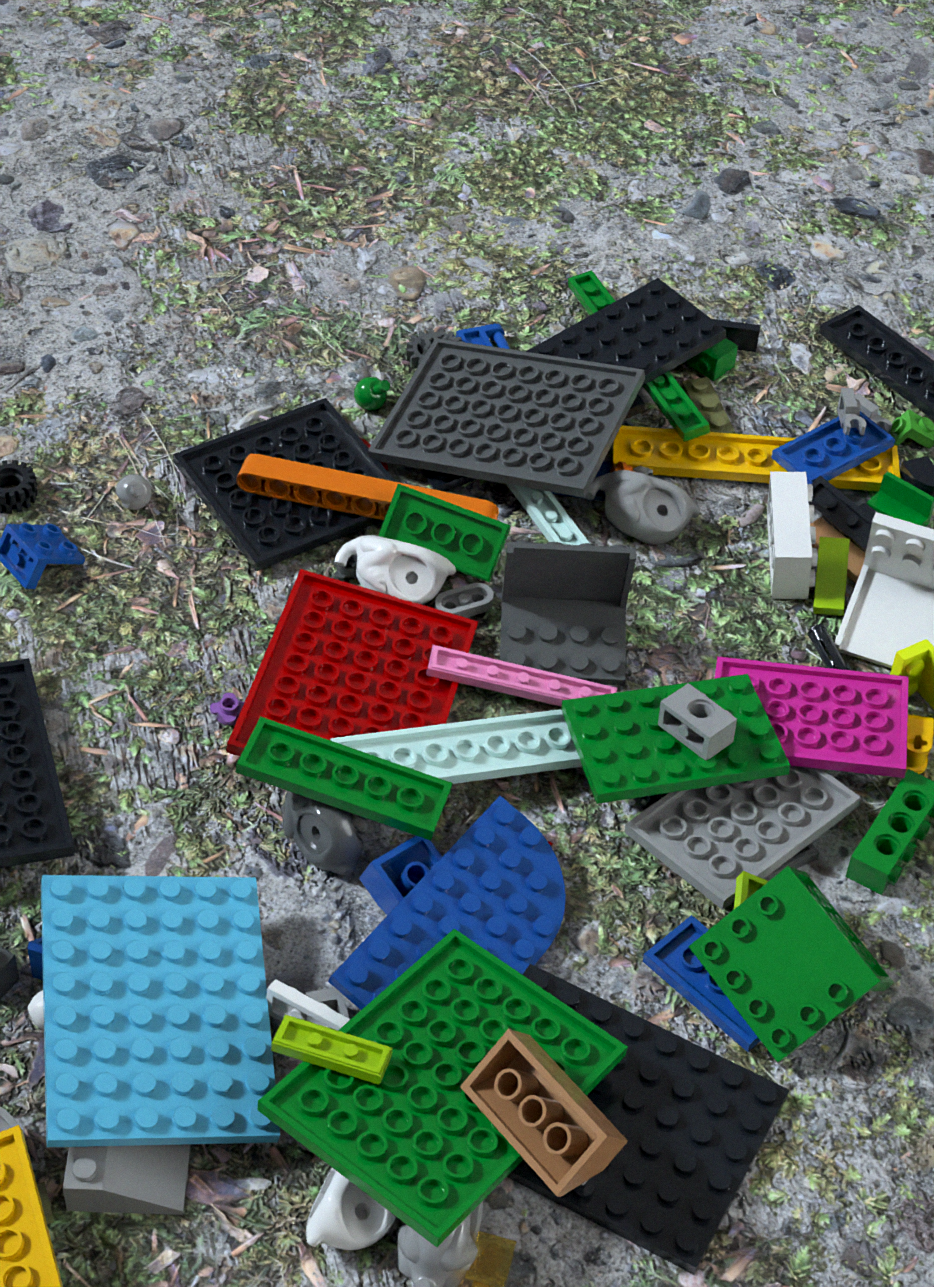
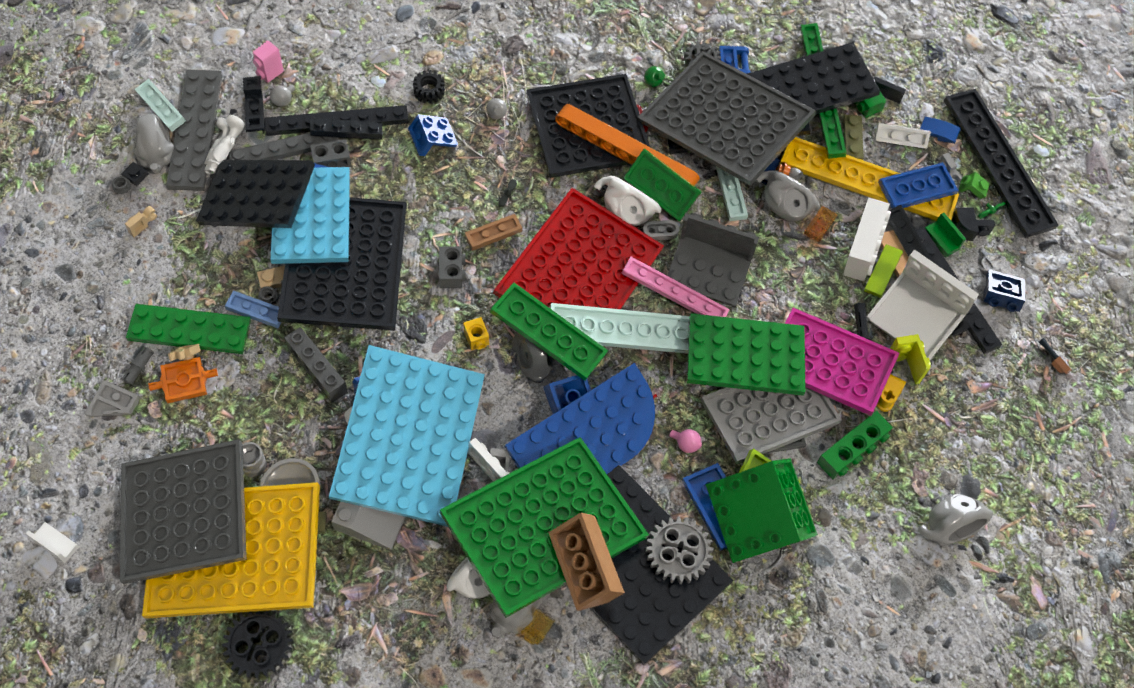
camera: 15 degrees right, 15 degrees up
(138, 737) = (449, 267): none -> dark grey brick
(191, 669) = (493, 232): none -> medium nougat plate
(194, 608) = (507, 192): none -> pearl dark grey piece
(216, 826) = (473, 327): none -> yellow brick
(227, 709) = (501, 261): medium lavender plate -> none
(332, 1049) = (488, 491): lime tile -> none
(629, 895) = (687, 440): none -> bright pink piece
(684, 1063) = (676, 568): none -> light grey gear
(697, 721) = (760, 361): light grey brick -> none
(709, 535) = (820, 224): none -> clear orange plate
(779, 389) = (902, 135): none -> white plate
(837, 368) = (941, 129): none -> blue slope
(849, 412) = (935, 165): light grey plate -> none

